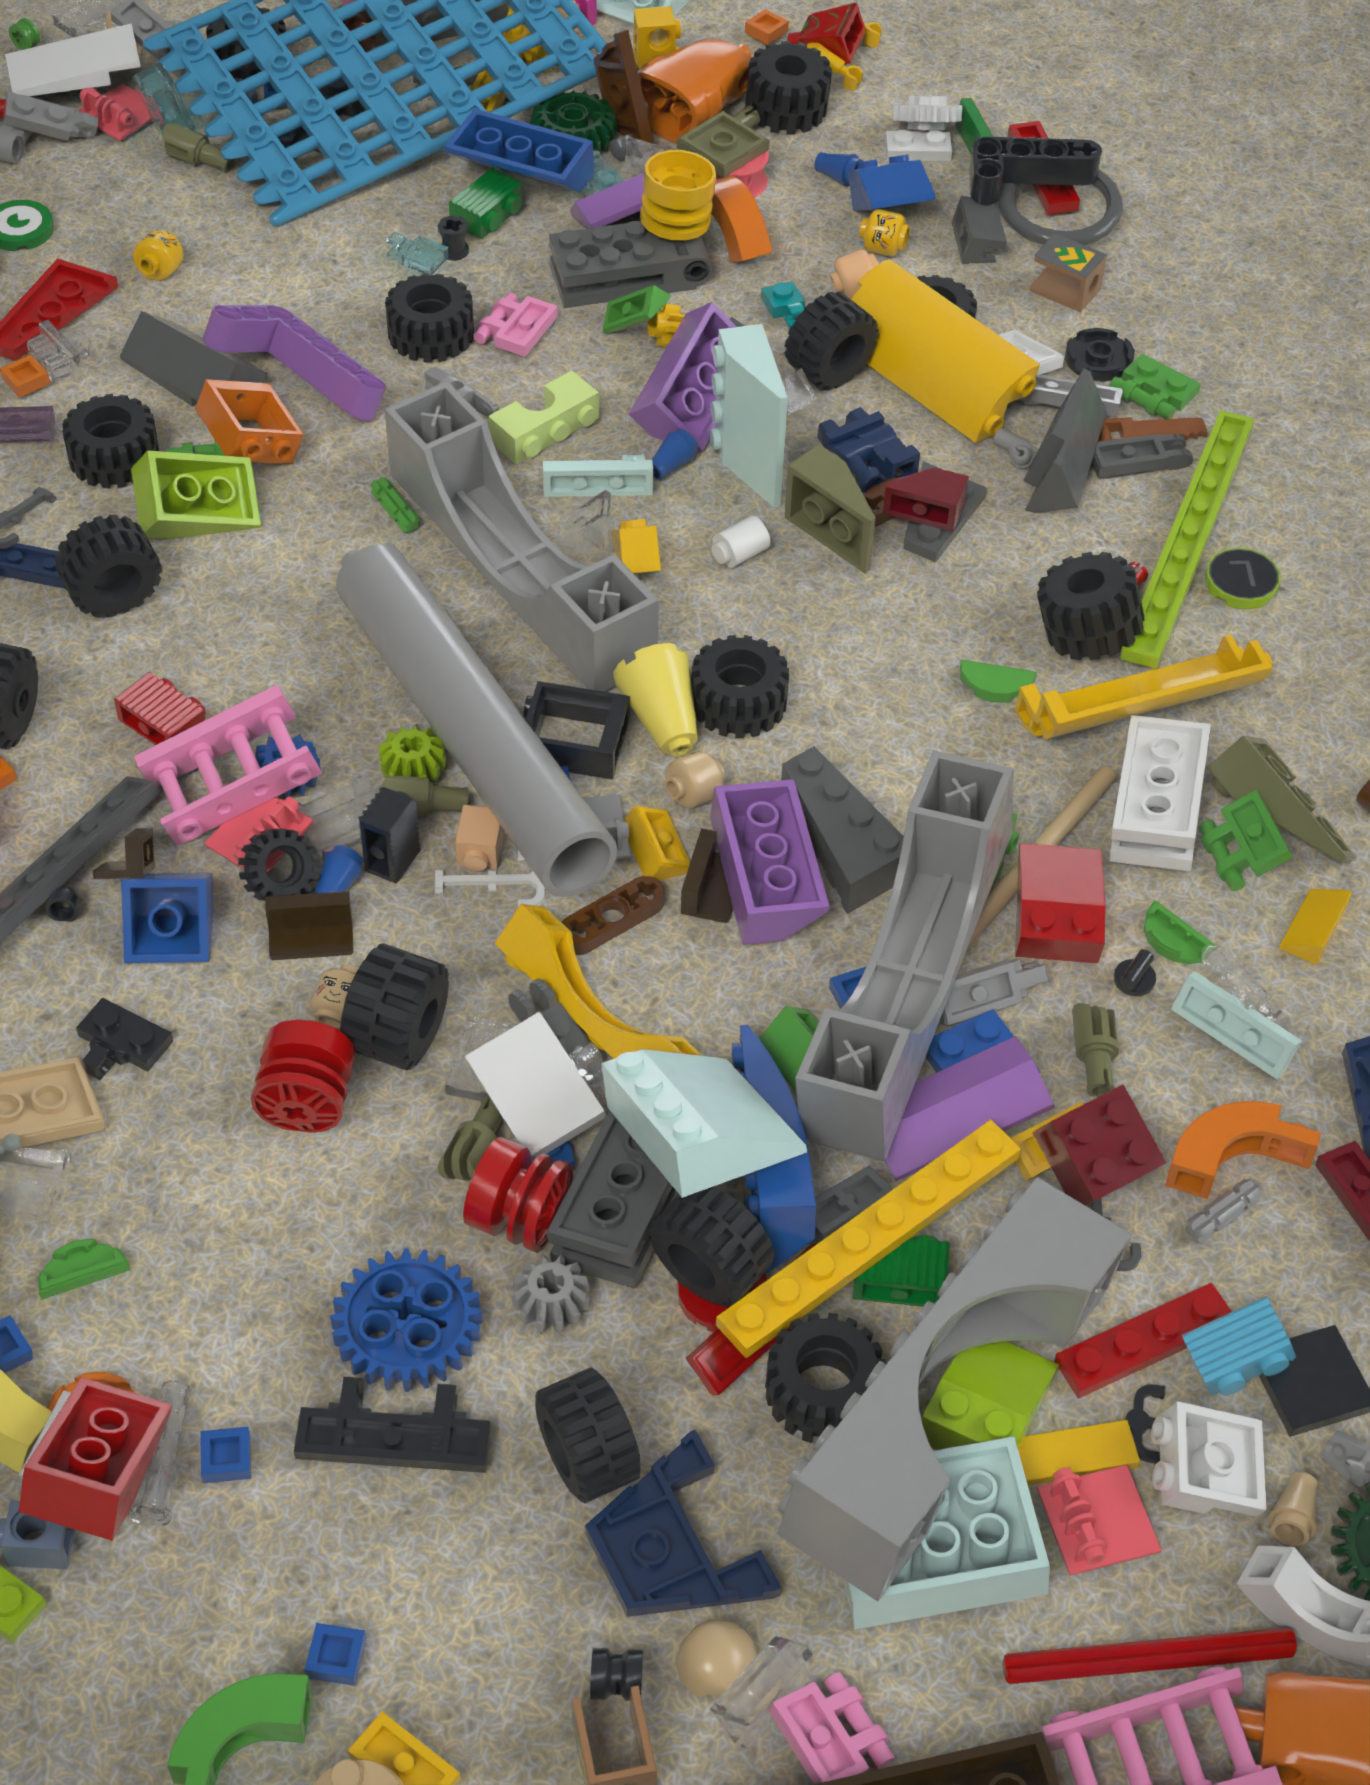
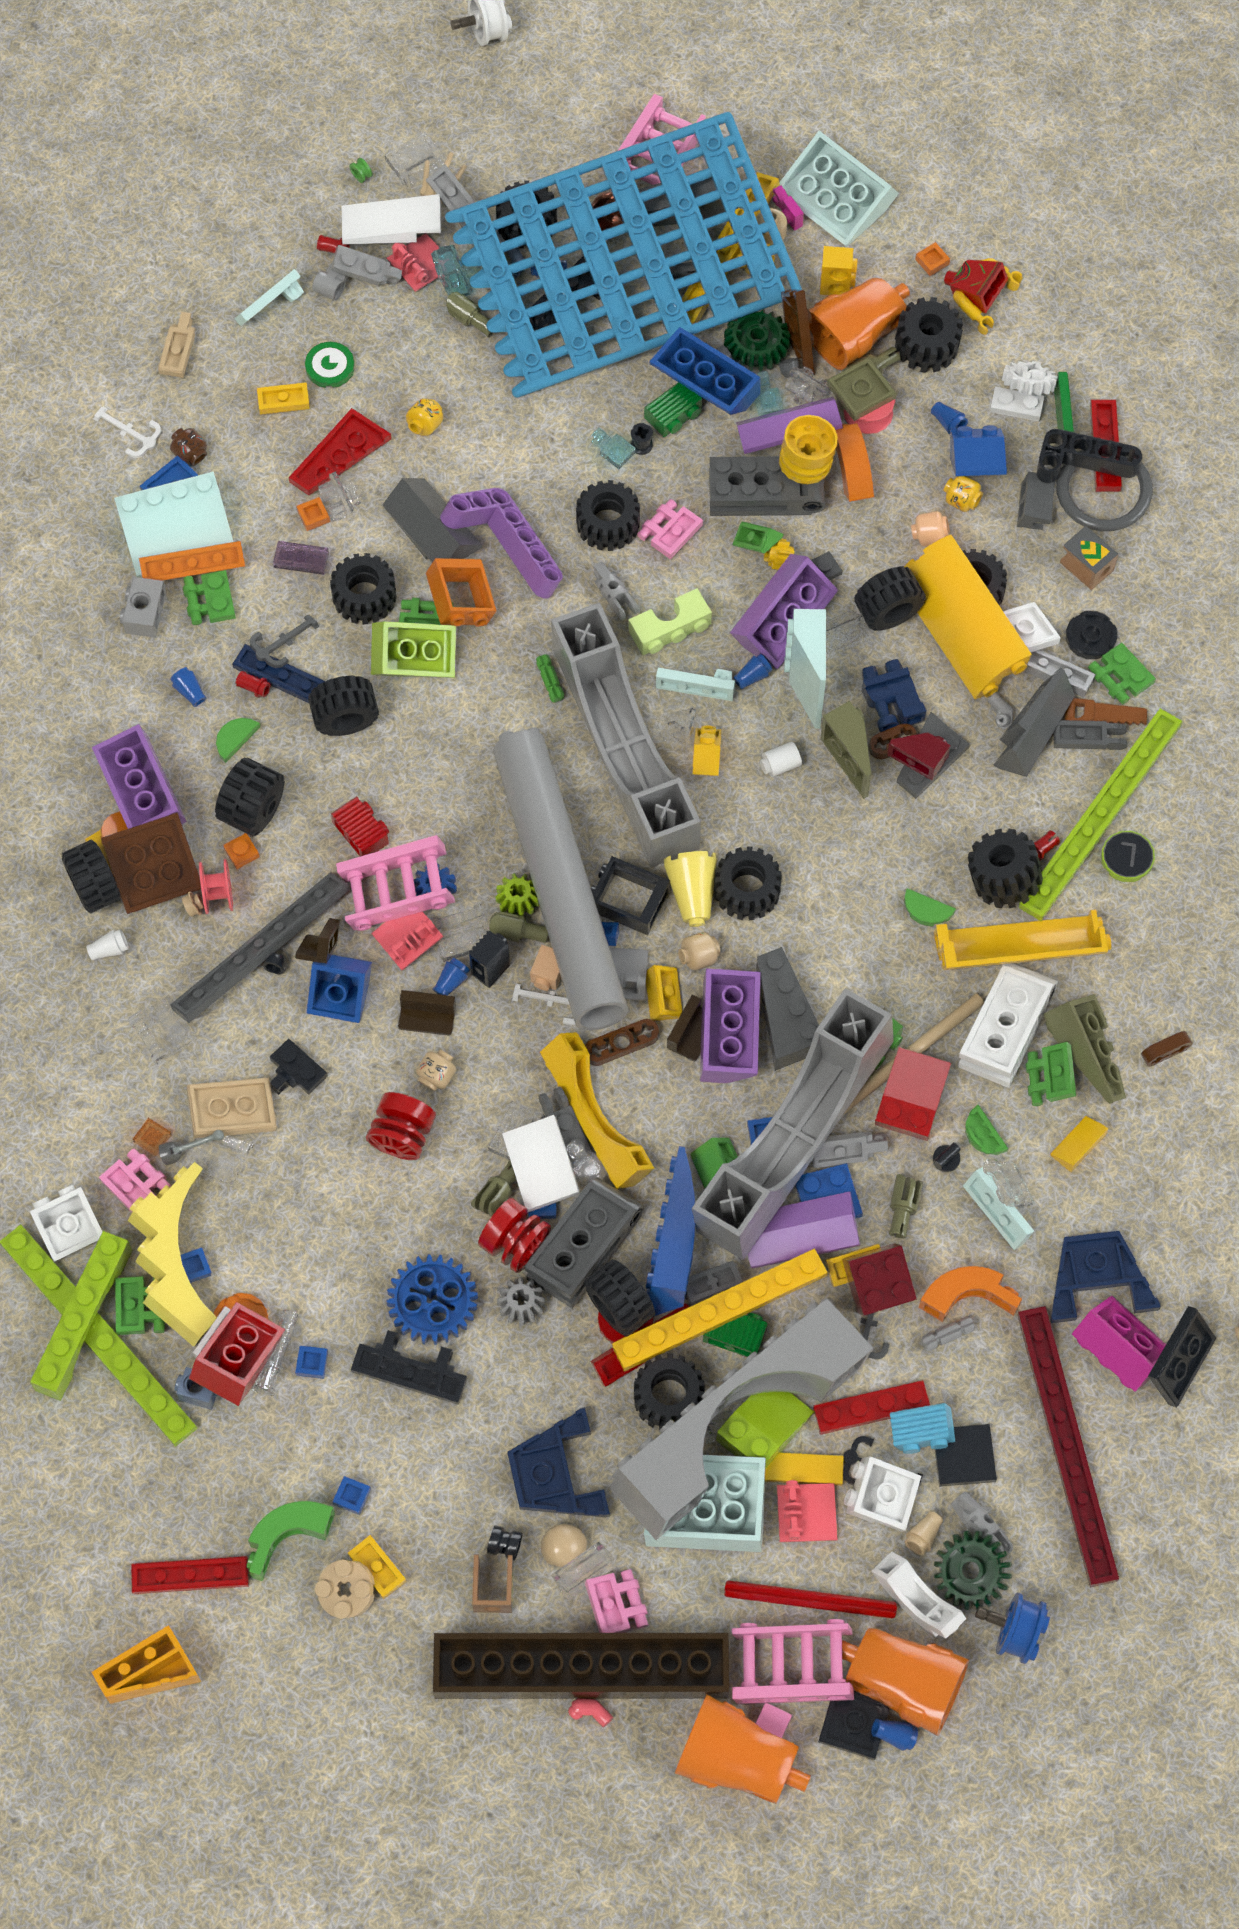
camera: 15 degrees right, 15 degrees up
(79, 1265) = (247, 1220): bright green tile -> none
(262, 847) = (407, 954): black tyre -> none
(395, 1006) = (466, 1090): black wheel -> none
(587, 1435) = (519, 1400): black tyre -> none
(696, 1117) = (631, 1215): light aqua slope -> none
(783, 301) = (872, 542): teal plate -> none

